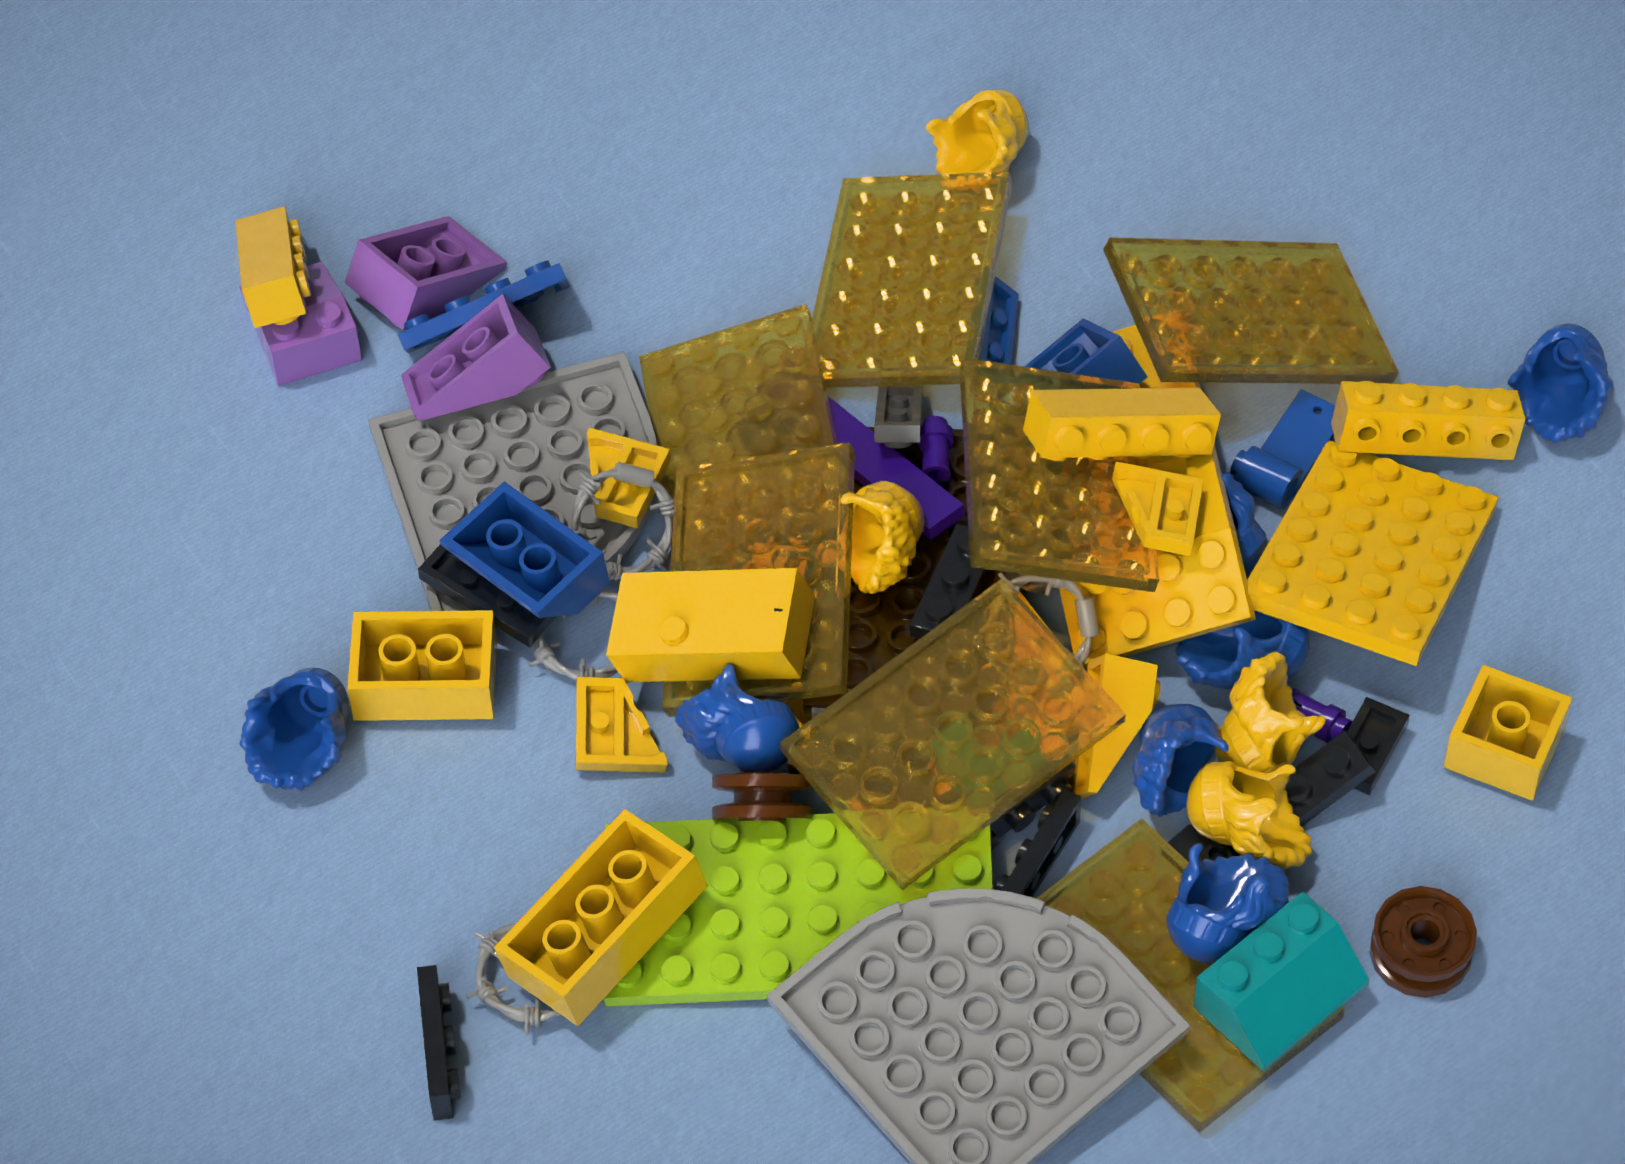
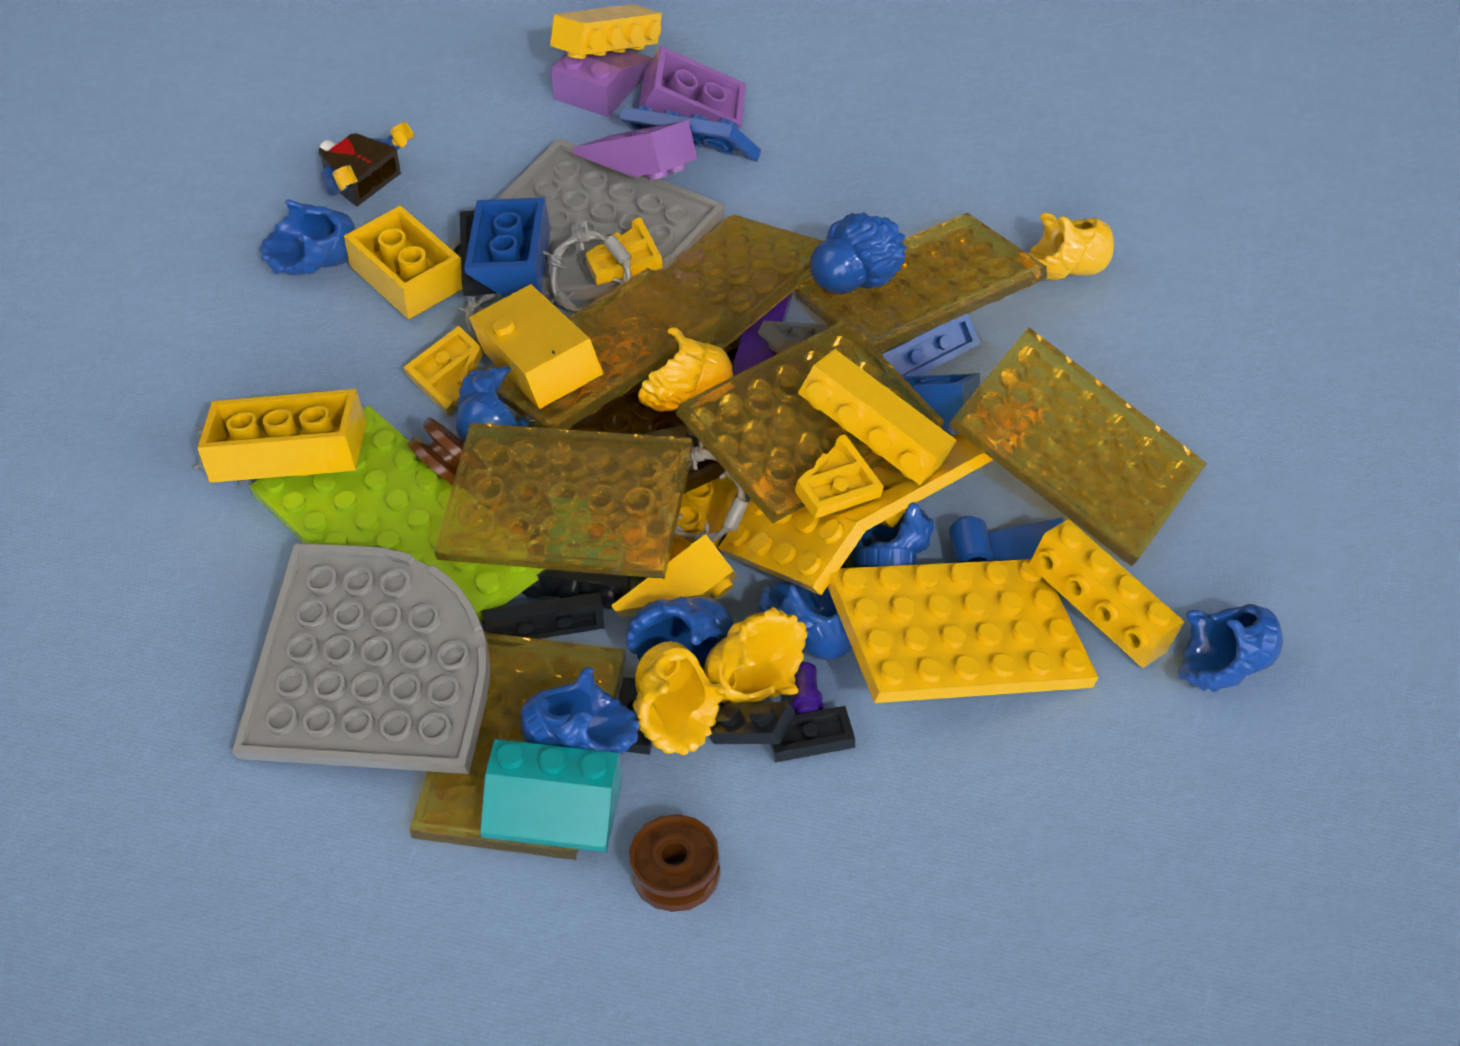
camera: 50 degrees right, 5 degrees down
(212, 610) = (362, 164): none -> dark brown torso
(438, 1042) = (148, 433): black plate -> none
(853, 295) = (858, 253): none -> blue hair
(1507, 732) = (893, 799): yellow brick -> none

